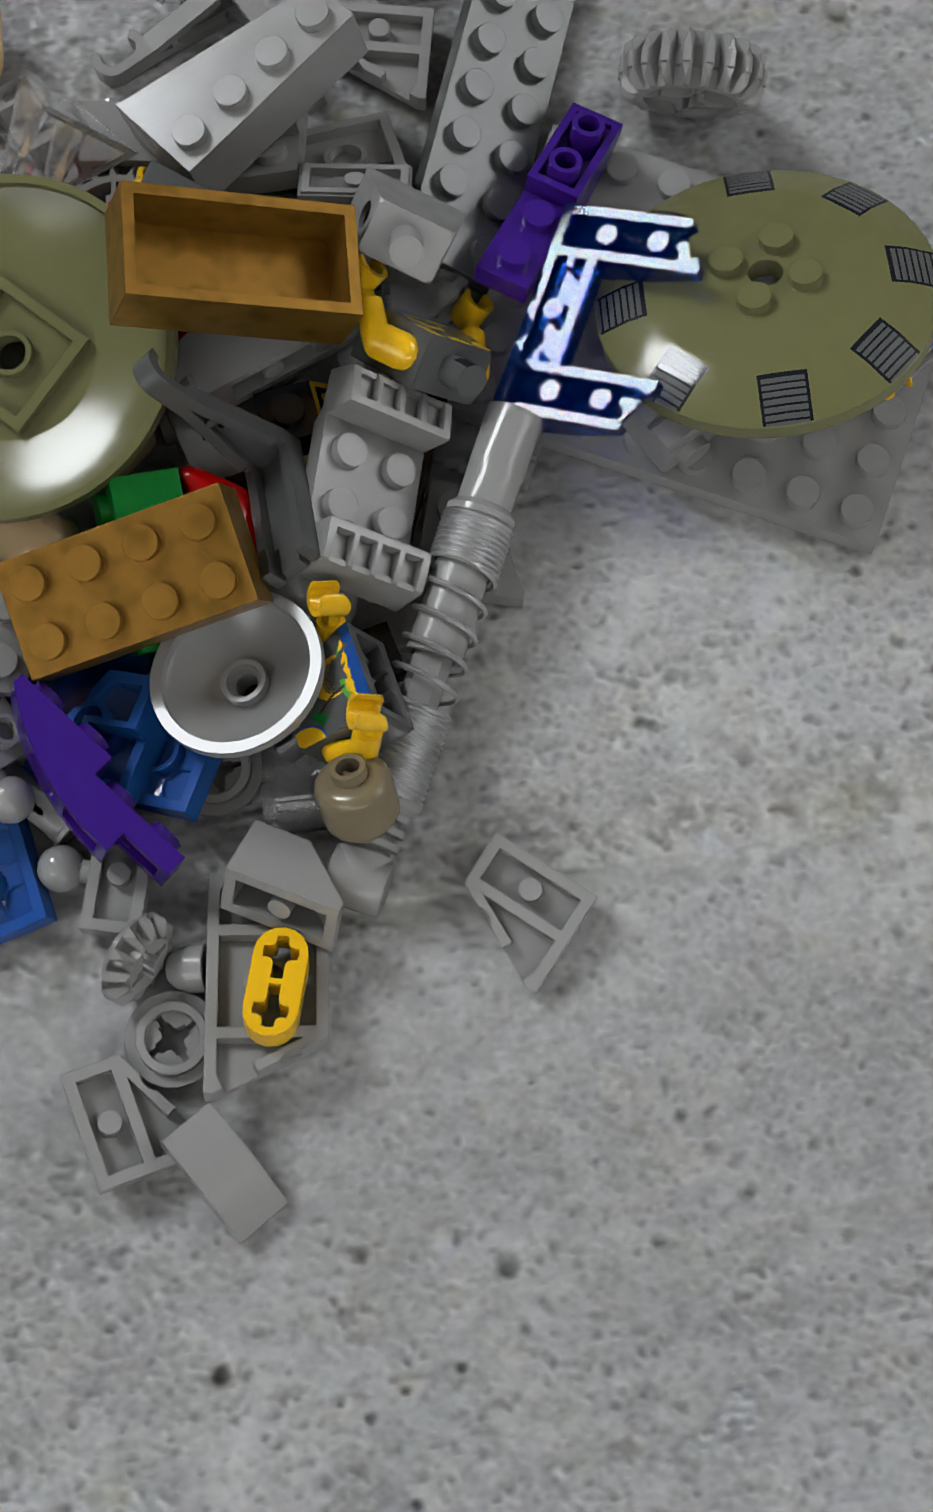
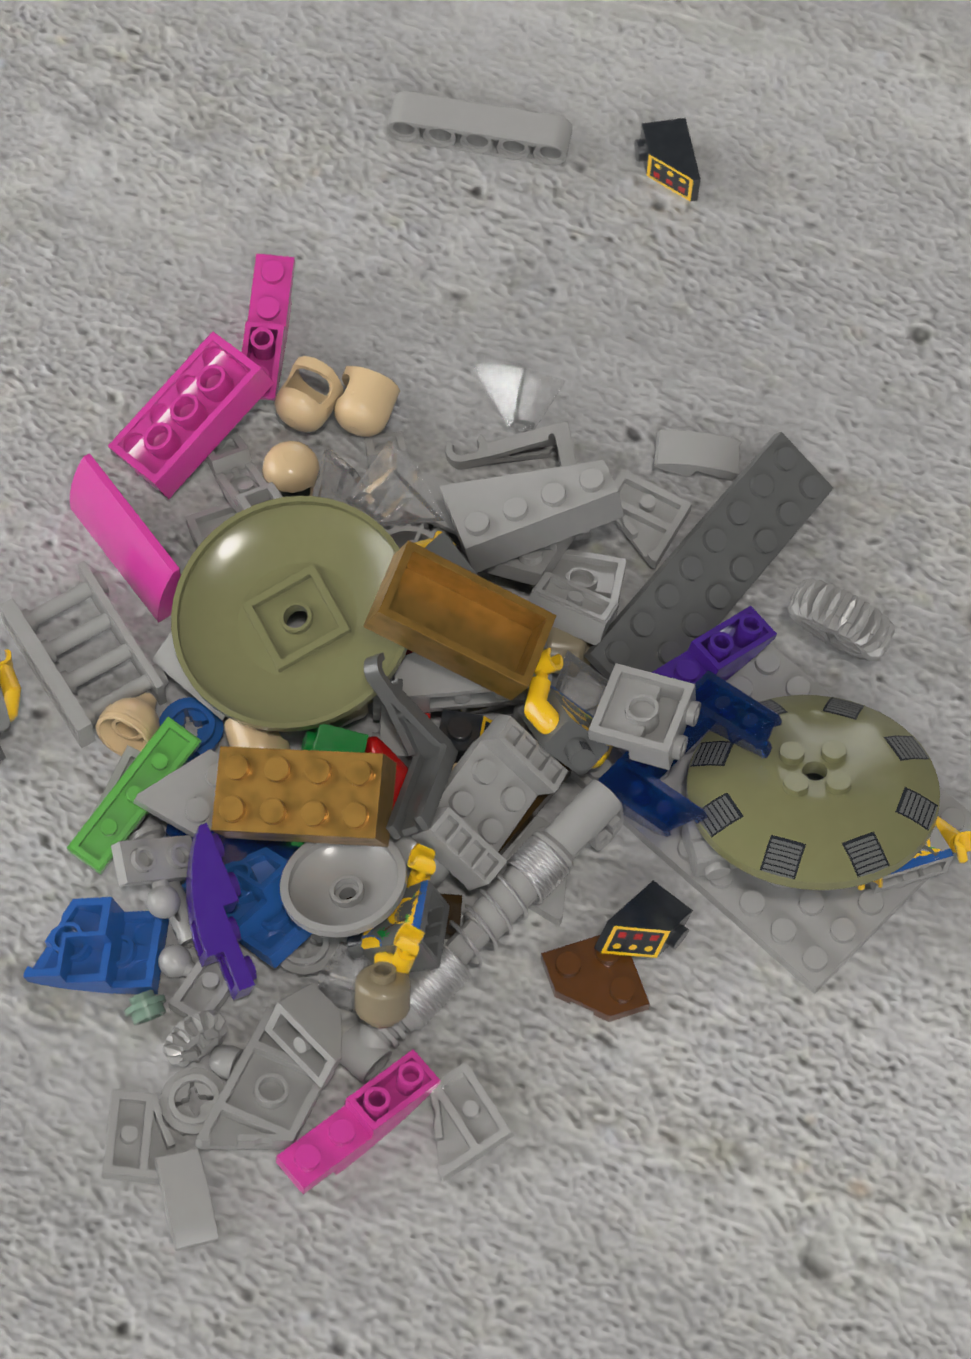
camera: 25 degrees right, 10 degrees down
(51, 945) = (145, 1007): none -> sand green plate
(263, 984) = (267, 1087): yellow beam -> none
(397, 972) = (360, 1123): none -> dark pink slope
(403, 225) = (589, 641): light grey torso -> none
(522, 290) = (645, 715): none -> light grey plate
(601, 649) = (595, 980): none -> reddish brown plate
(638, 558) = (646, 924): none -> black slope

